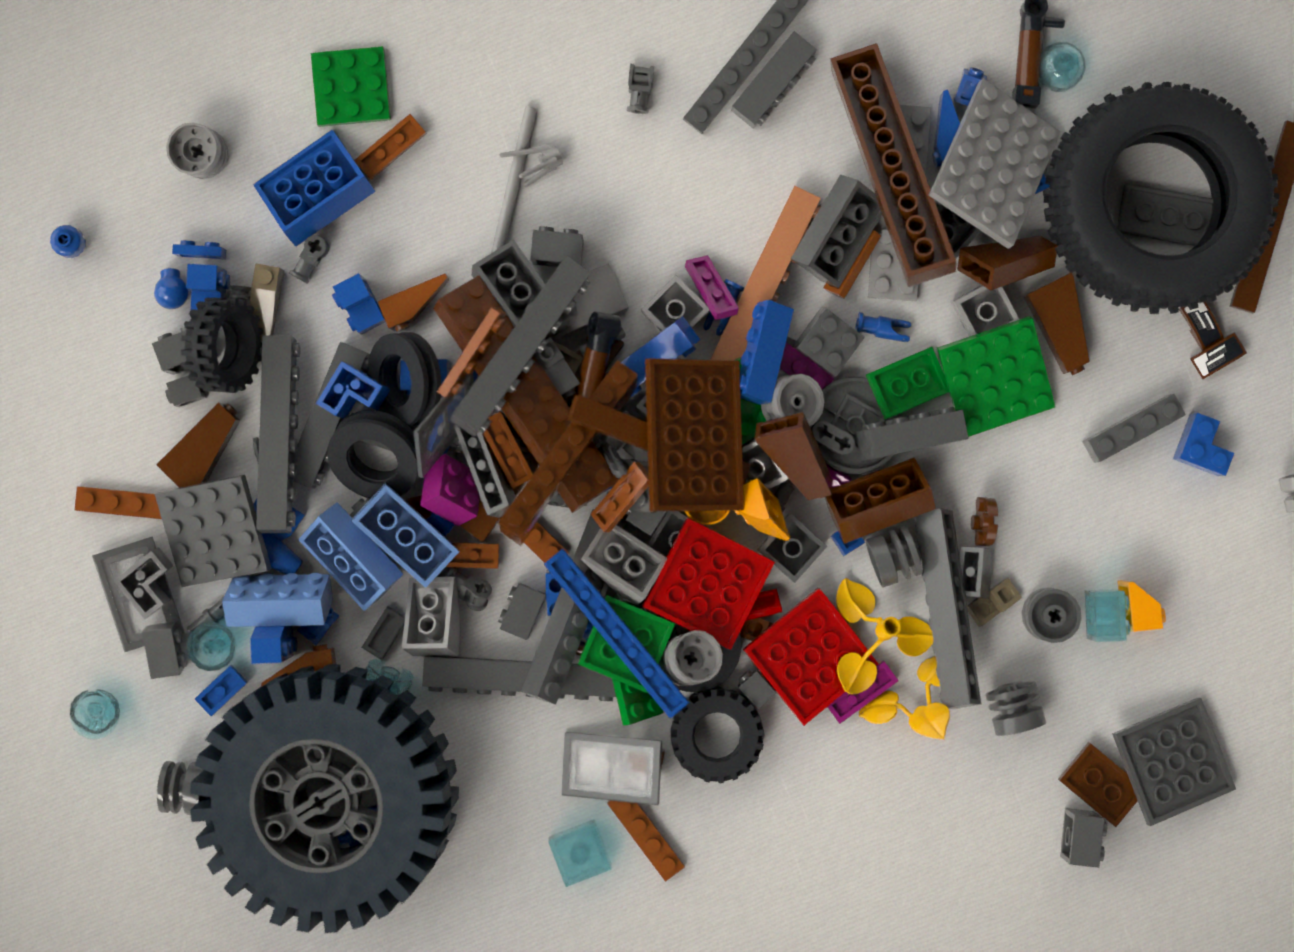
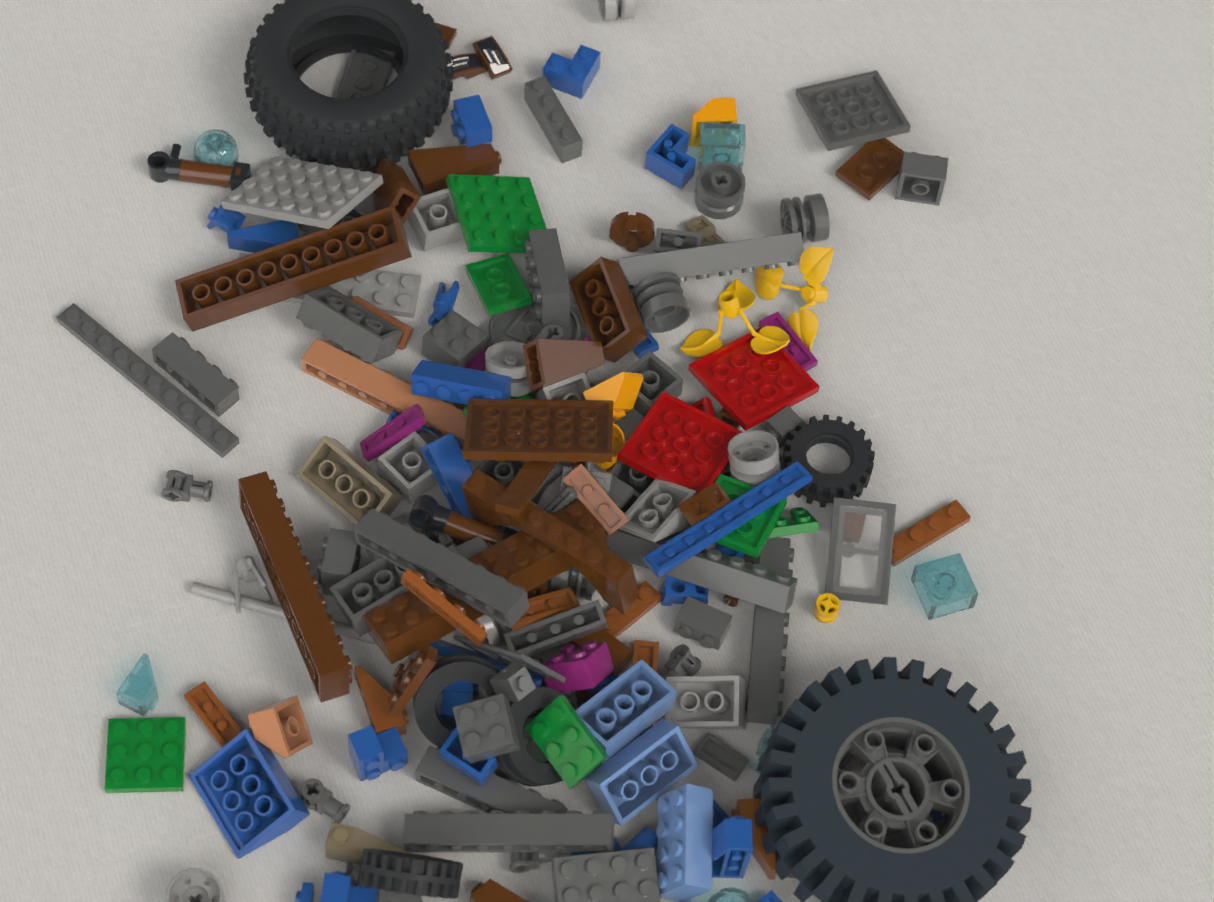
camera: 90 degrees left, 30 degrees down
(353, 404) = (486, 728): none -> dark grey brick
(362, 482) = (566, 741): none -> green plate
(375, 209) = (281, 726): none -> nougat slope
(404, 425) = (513, 683): none -> dark grey brick
(415, 72) = (139, 688): none -> clear light blue slope
(418, 329) = (410, 677): none -> reddish brown plate
(524, 204) = (295, 587): none -> reddish brown brick
(548, 738) = (828, 602): none -> yellow wheel
(629, 608) = (704, 503): none -> reddish brown slope
(653, 249) = (347, 481): none -> dark tan slope
(1087, 555) = (669, 158): none -> blue brick
(1115, 337) = (471, 122): none -> blue brick

